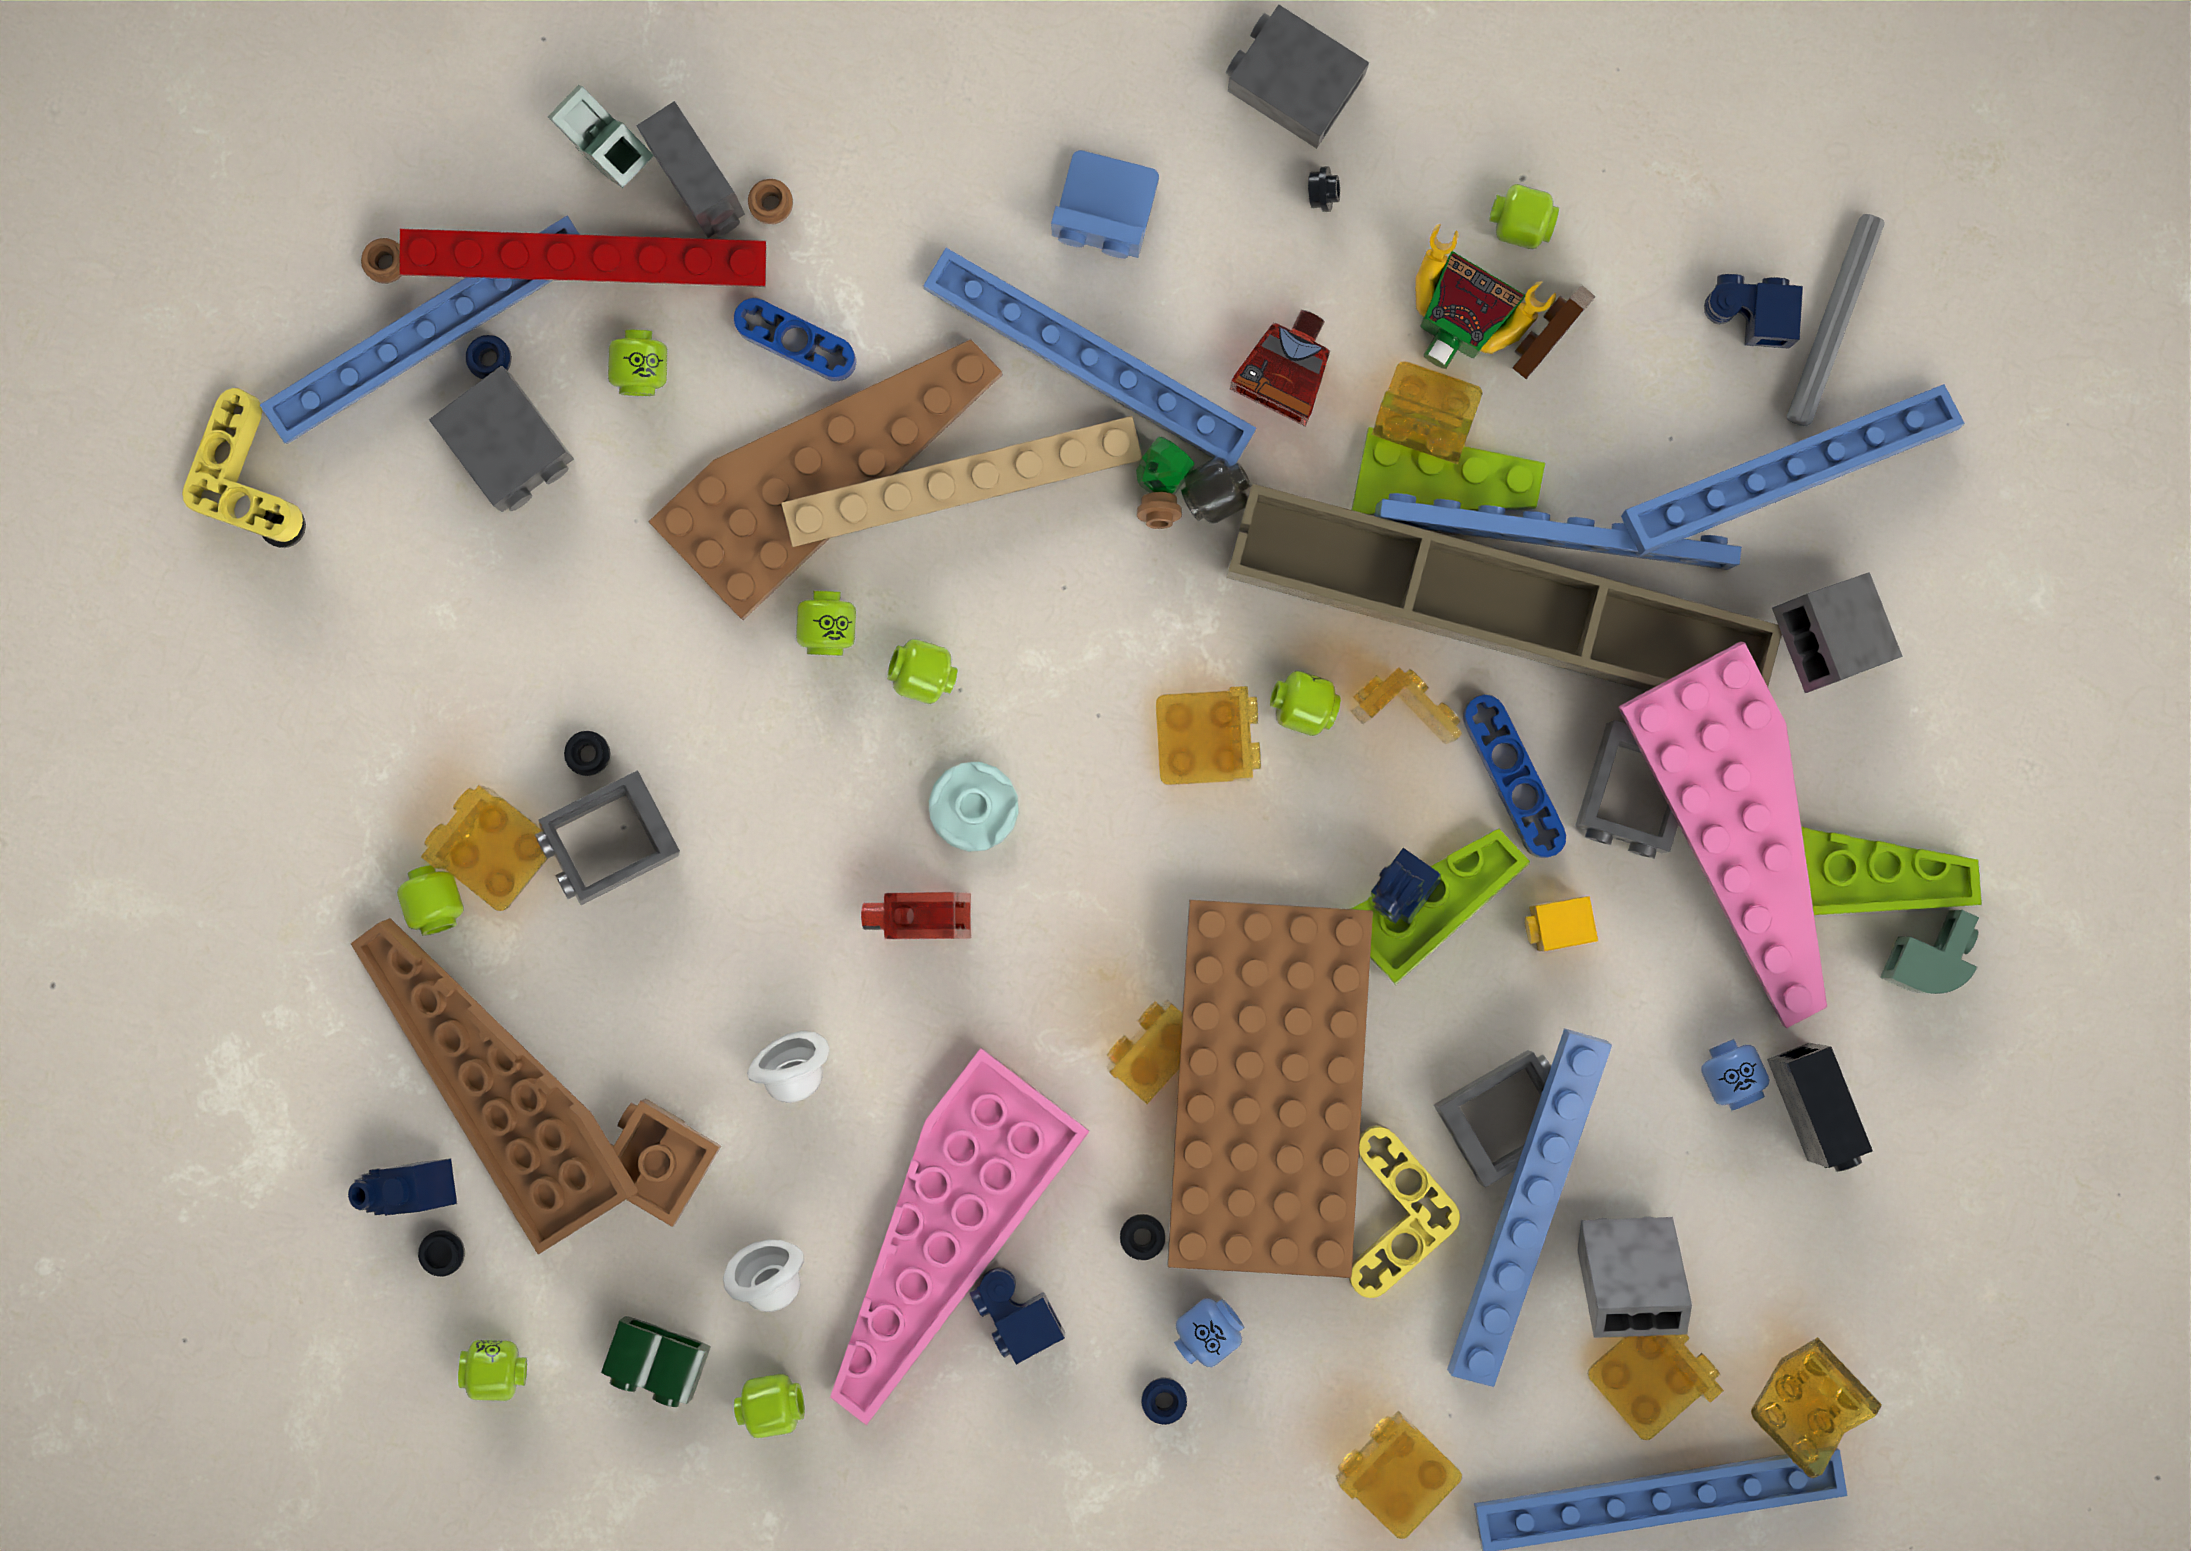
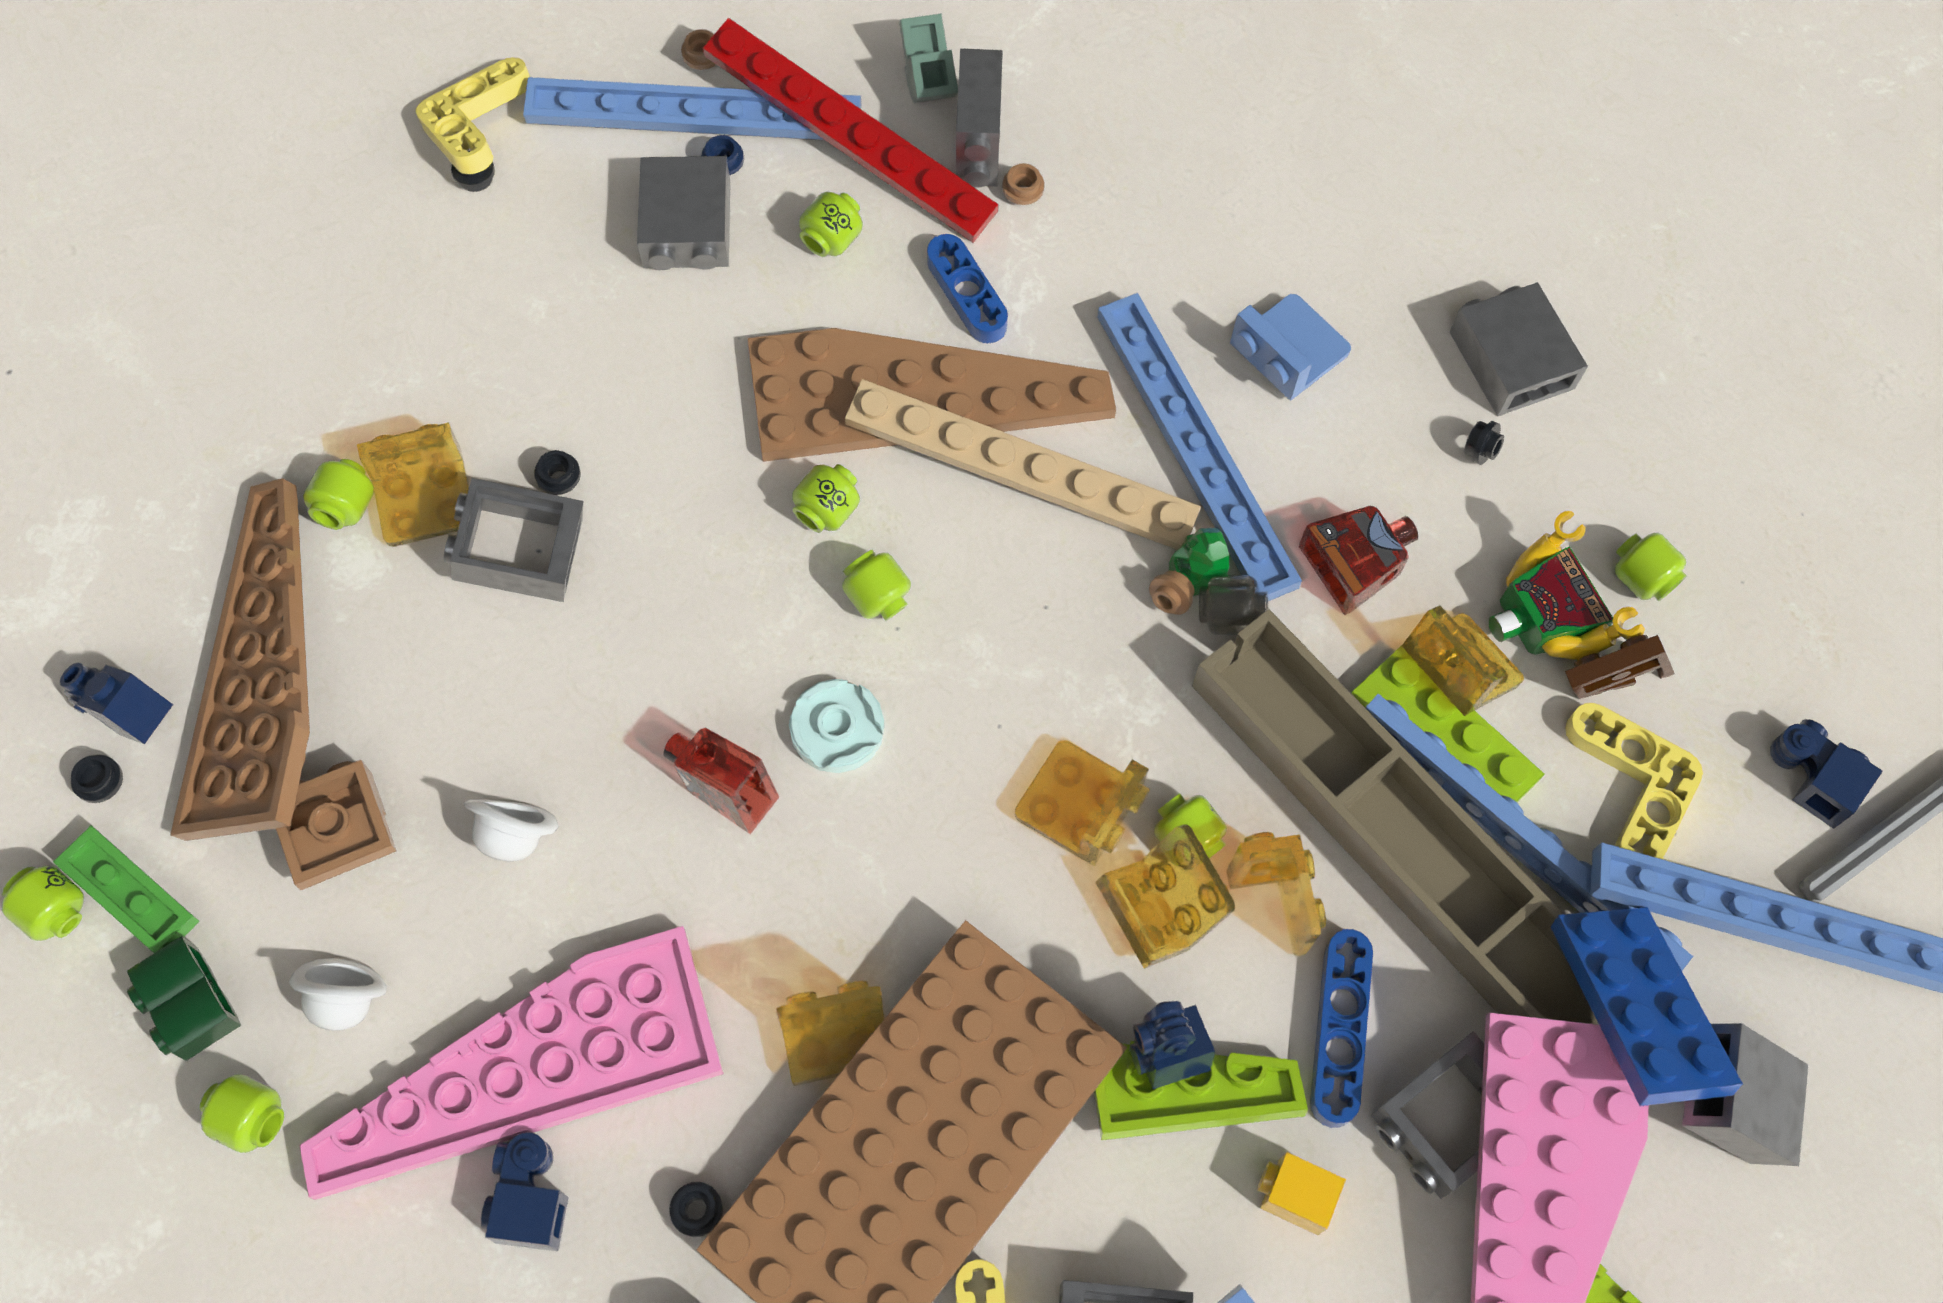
camera: 30 degrees right, 20 degrees down
(542, 1317) = (125, 890): none -> bright green plate
(1324, 774) = (1167, 898): none -> clear yellow bracket
(1623, 400) = (1652, 771): none -> light yellow beam
(1728, 625) = (1645, 1007): none -> blue plate

